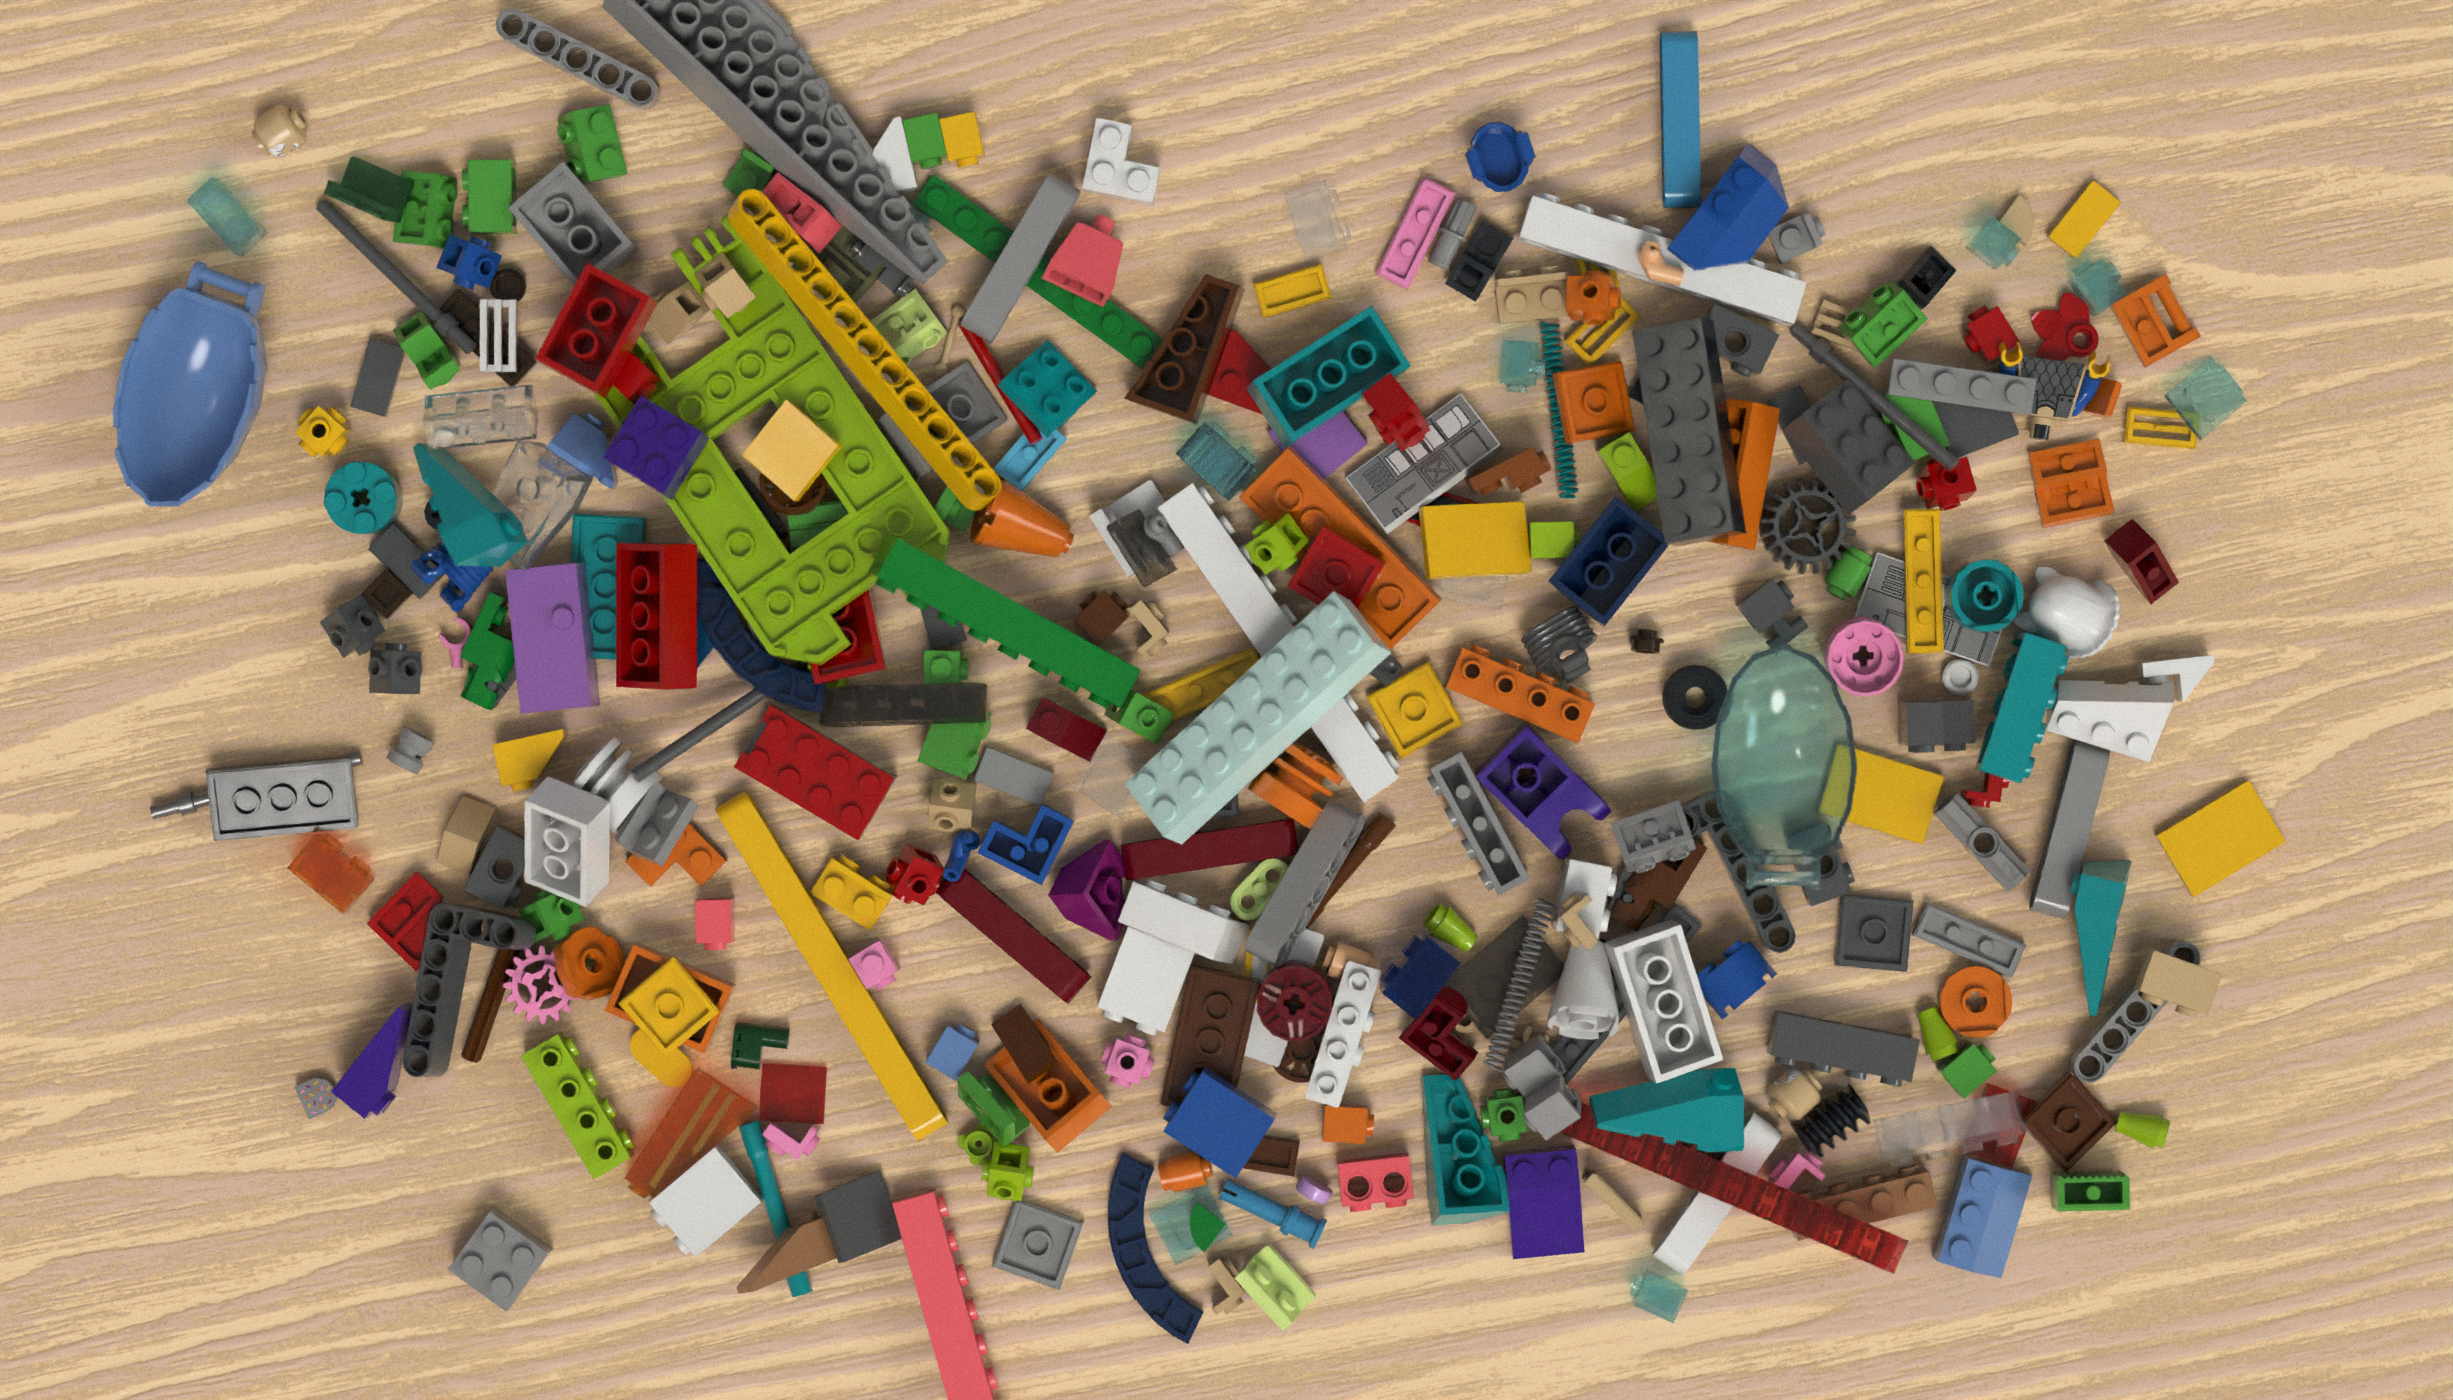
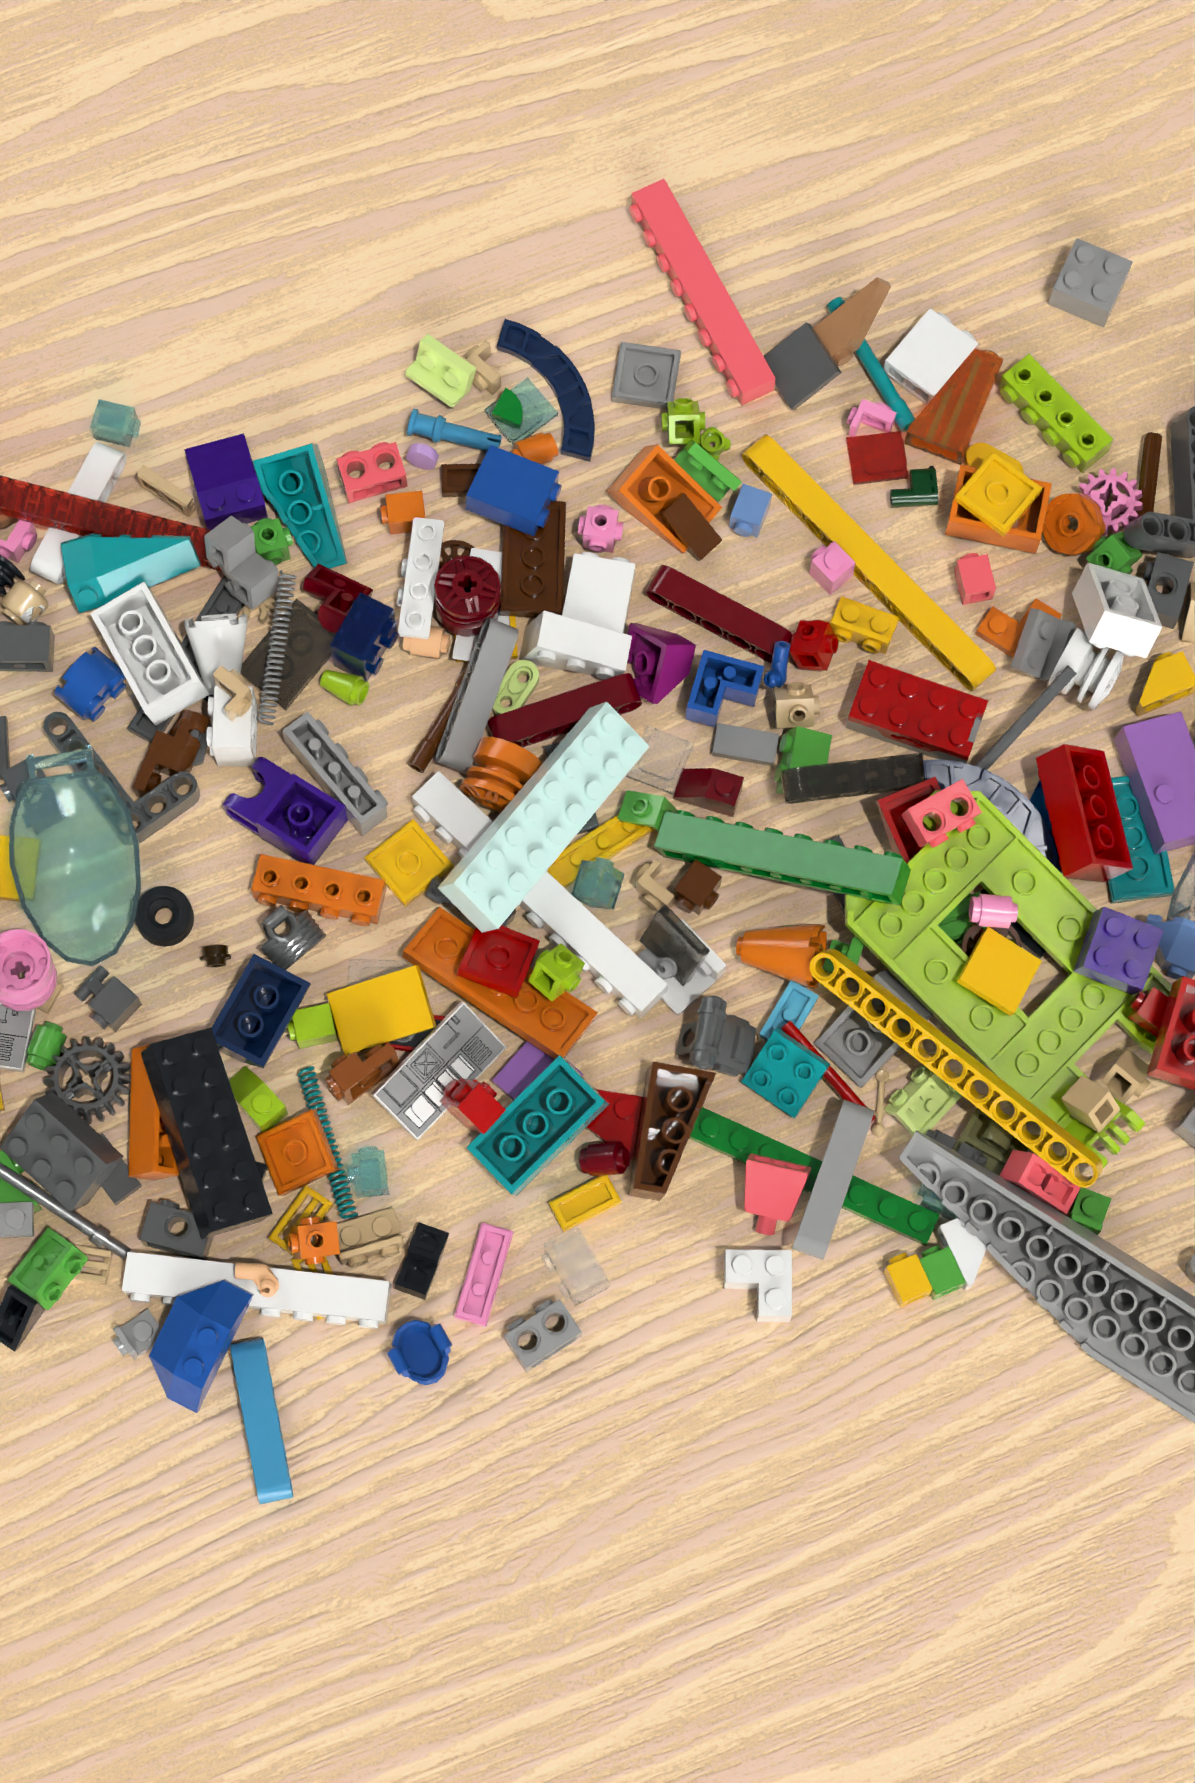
camera: 165 degrees right, 15 degrees down
(785, 515) = (992, 911): none -> bright pink brick
(821, 638) = (939, 810): none -> coral brick
(944, 667) = (825, 819): bright green brick -> none
(1111, 433) = (719, 1039): none -> dark grey piece
(1210, 641) = (598, 883): none -> clear light blue brick
(1217, 460) = (622, 1040): clear light blue brick -> none
(1262, 330) = (604, 1159): none -> dark red brick
(1361, 144) = (547, 1341): none -> light grey brick
(1452, 234) = (450, 1278): light grey axle -> none
(1654, 837) = (181, 784): light grey bracket -> none

